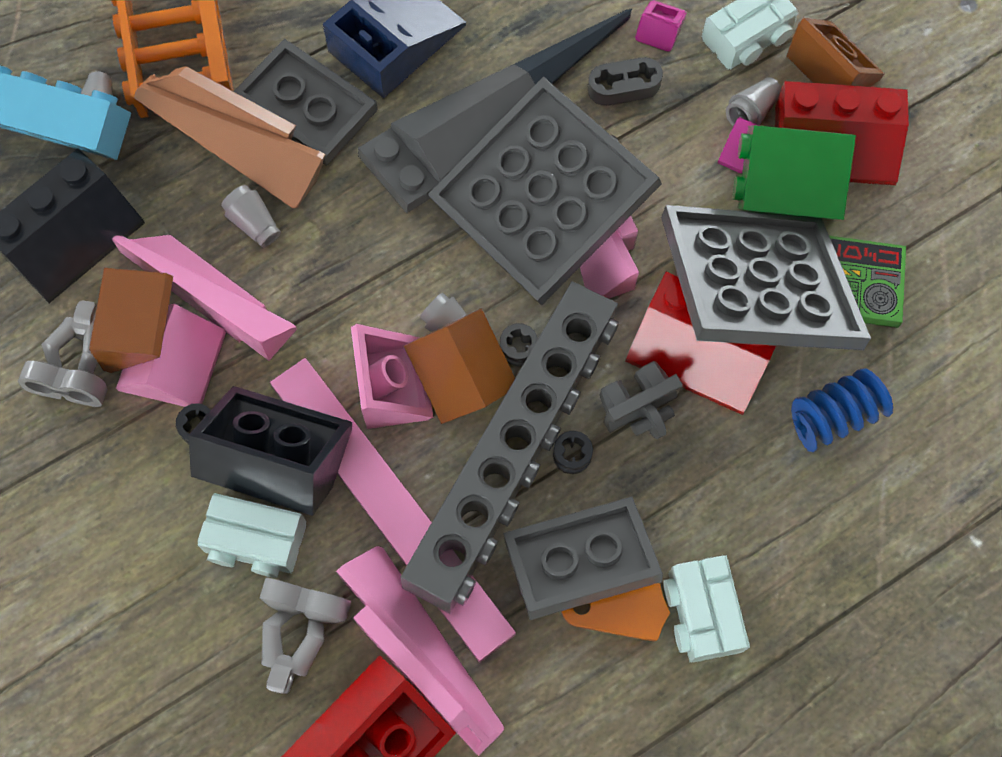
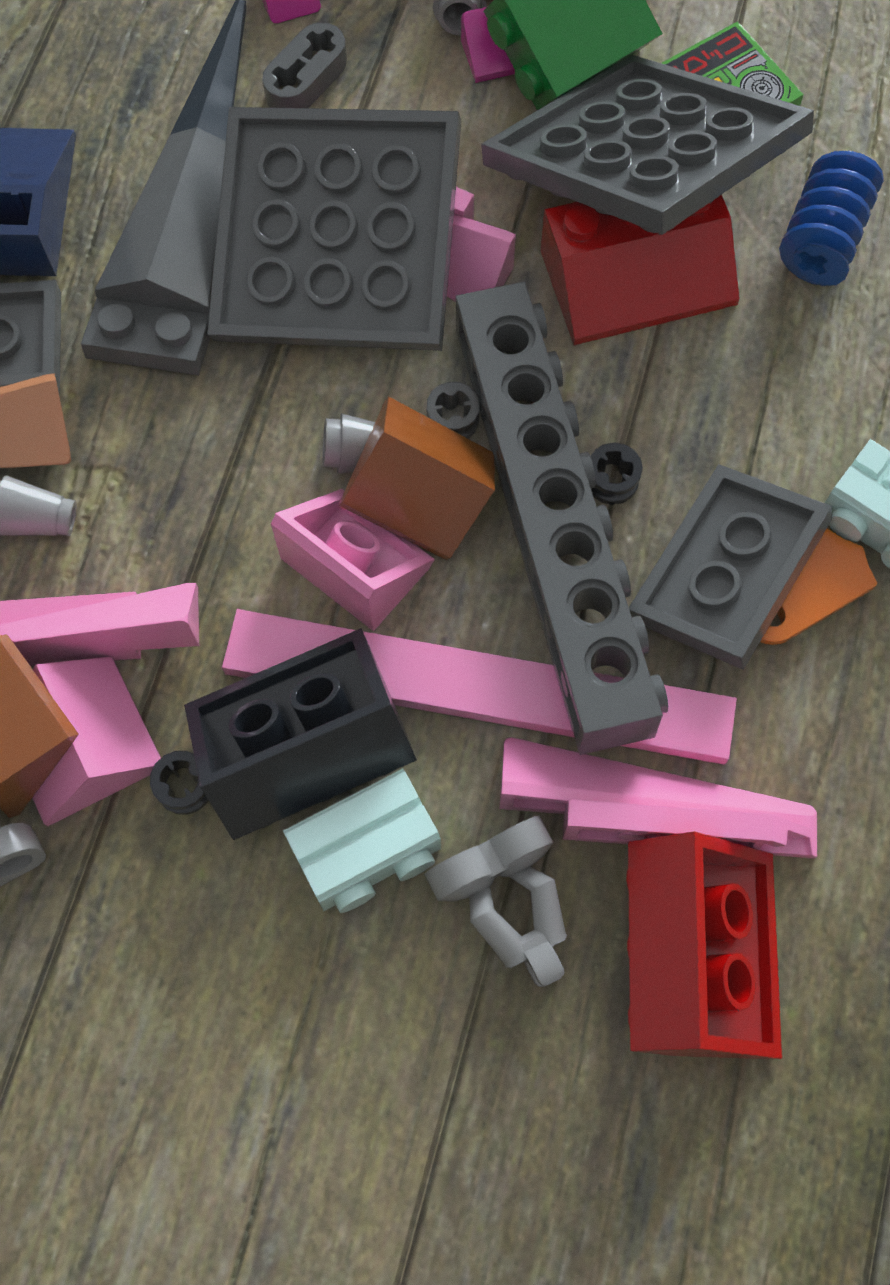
camera: 40 degrees left, 0 degrees up
(656, 391) = (621, 385): dark grey hips -> none

